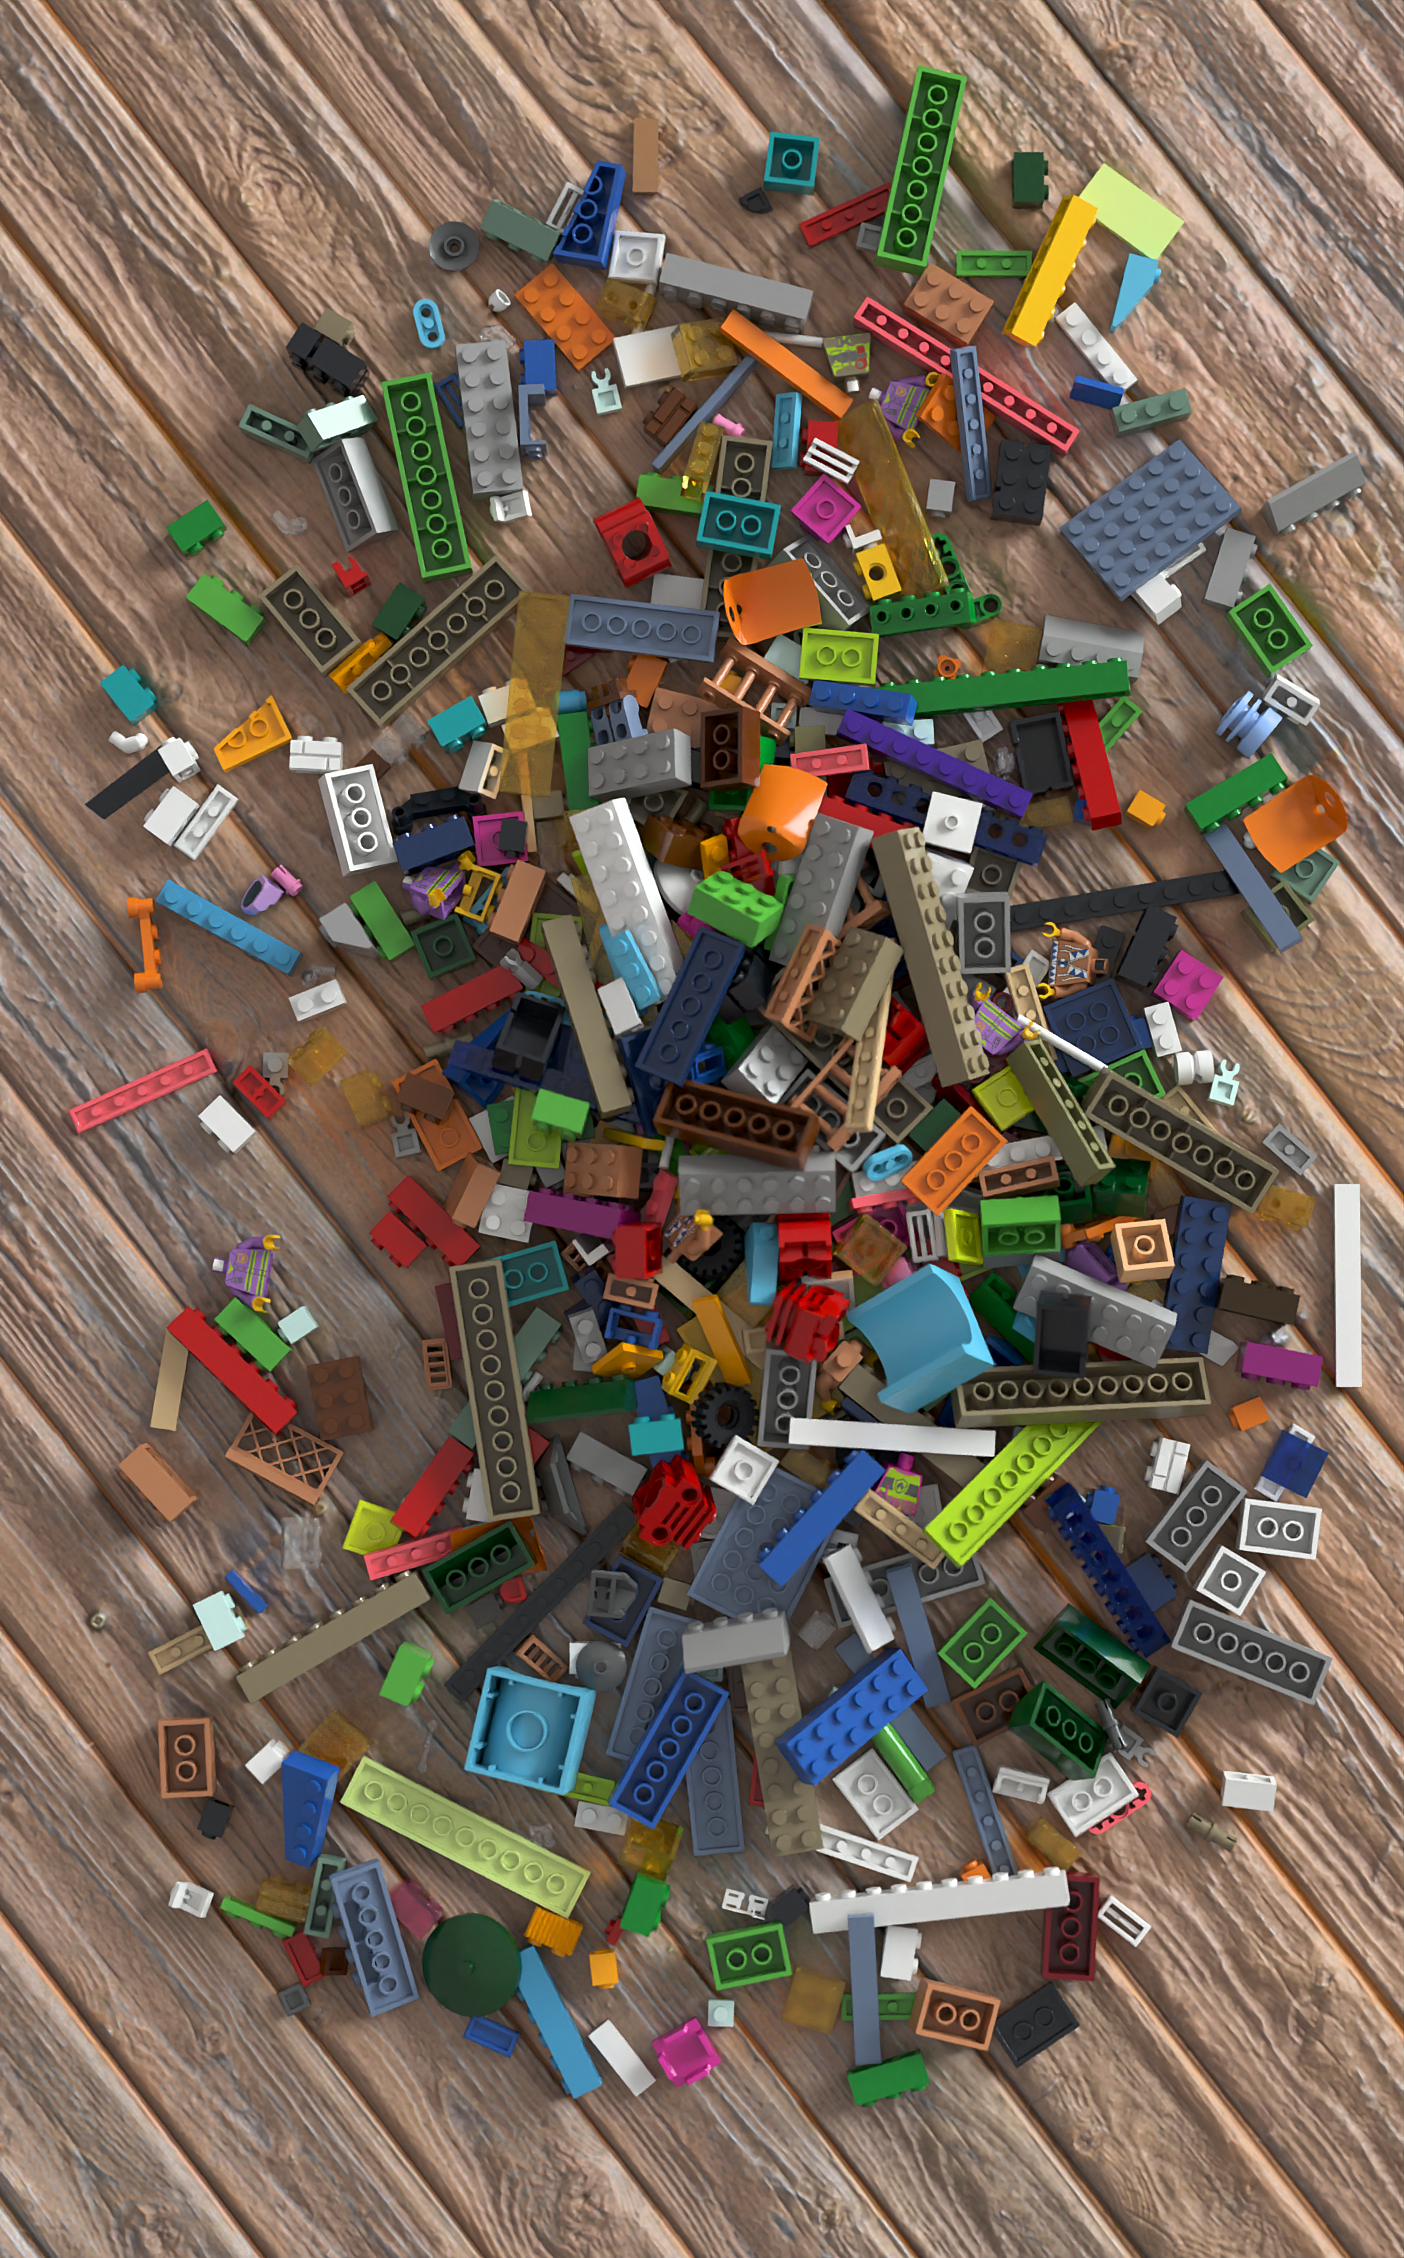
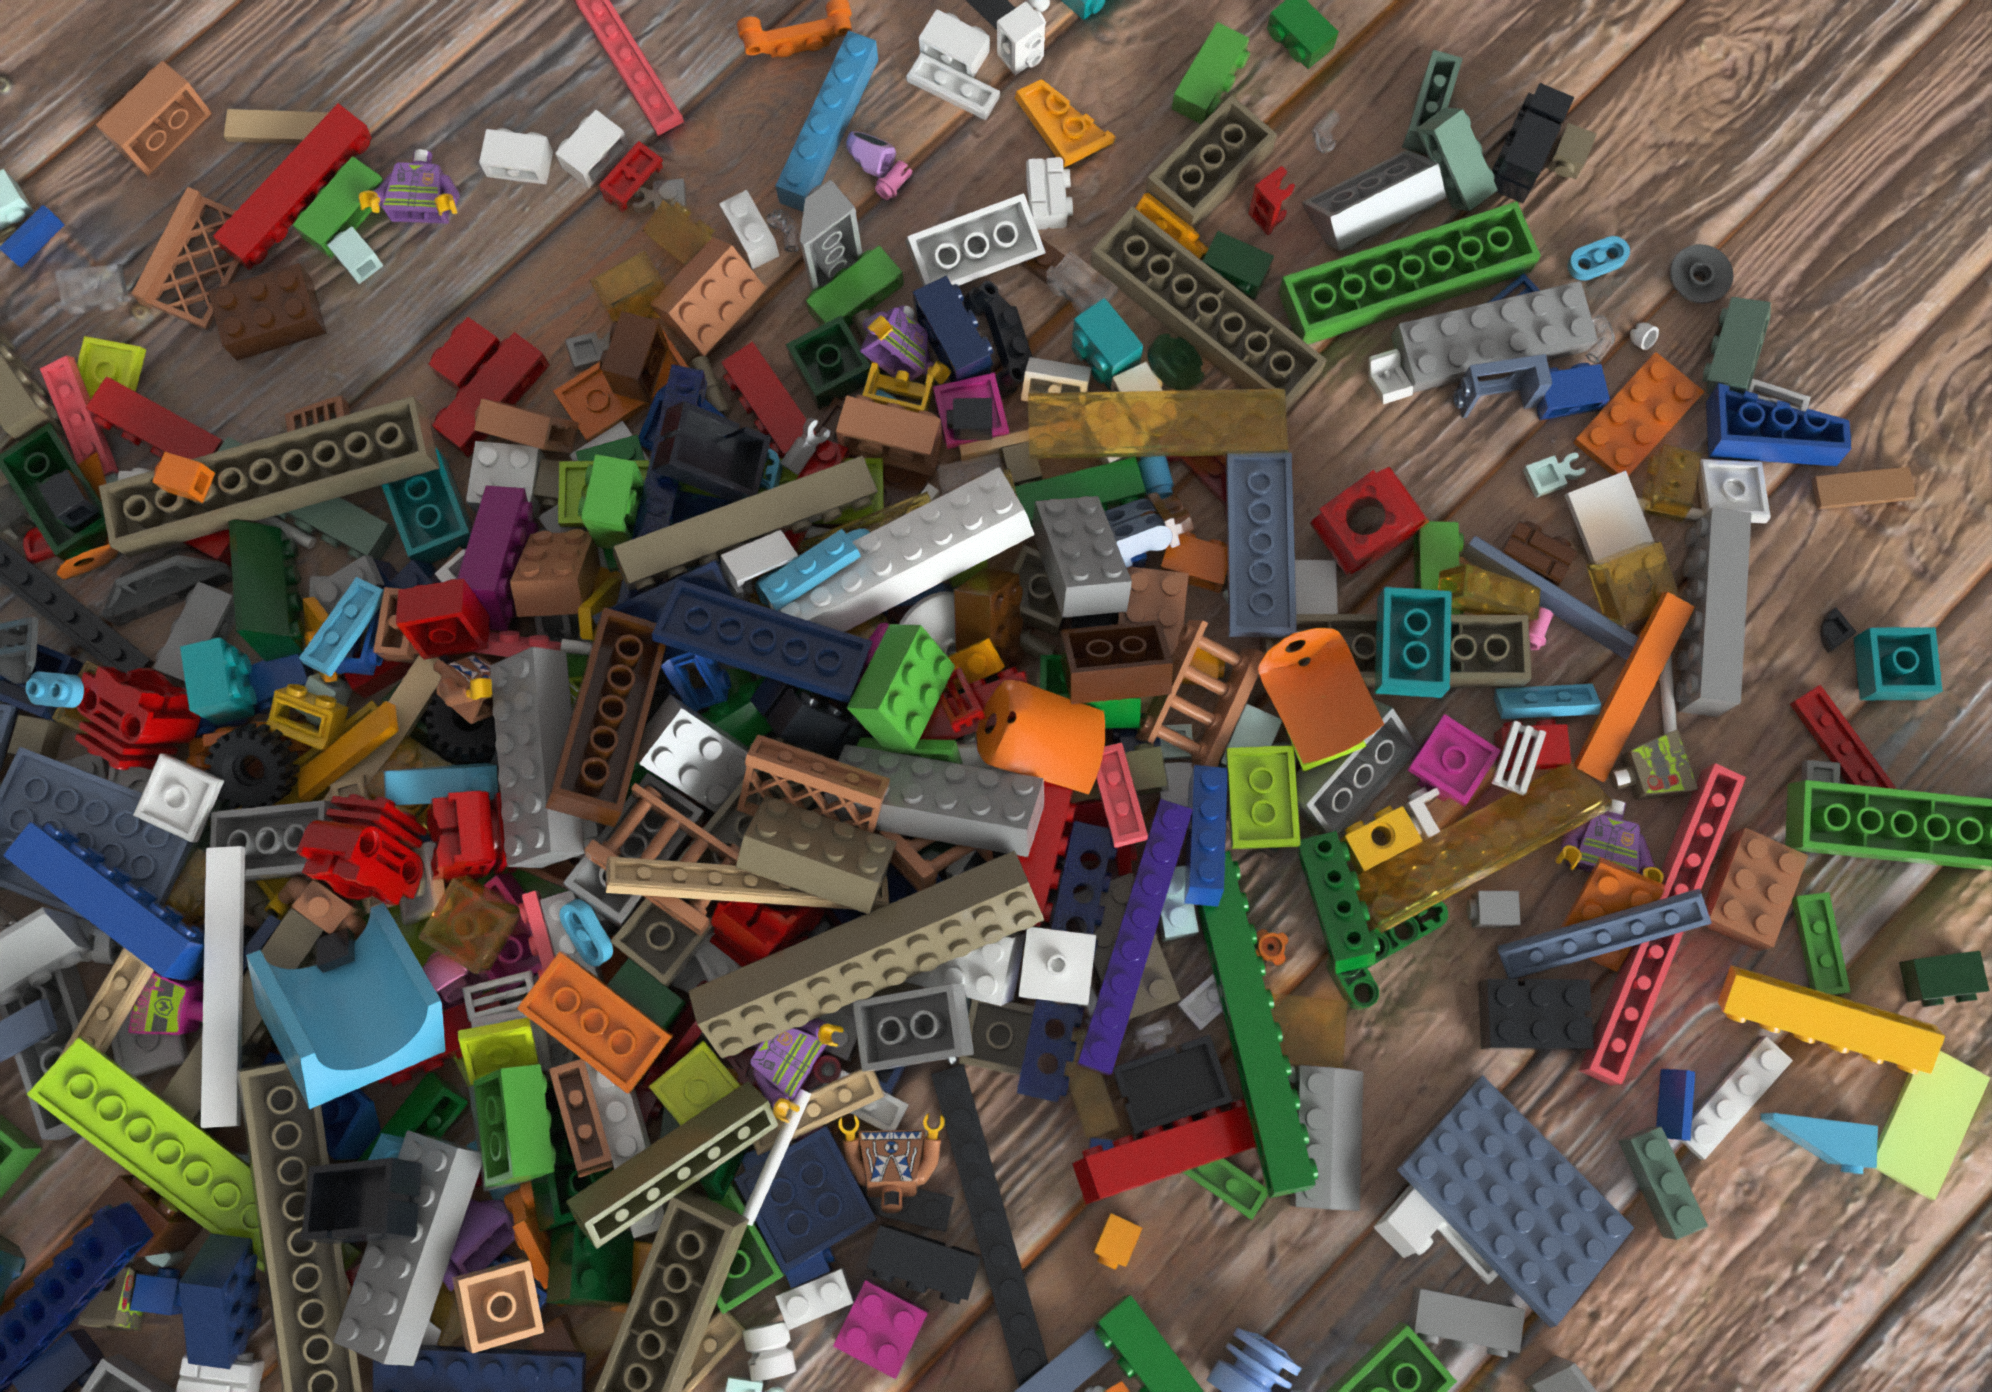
camera: 85 degrees right, 10 degrees down
(225, 1187) = (516, 156): none -> white brick
(377, 1037) = (708, 296): none -> nougat brick
(478, 673) = (1175, 362): none -> clear green tile
(492, 1548) = (69, 498): none -> black brick
(495, 1449) = (183, 477): none -> orange brick
(629, 1331) = (343, 627): none -> medium azure plate
(647, 1564) = (55, 689): none -> medium azure plate
(875, 1353) = (335, 950): none -> black tile
(1116, 1452) = (220, 1301): none -> dark blue brick

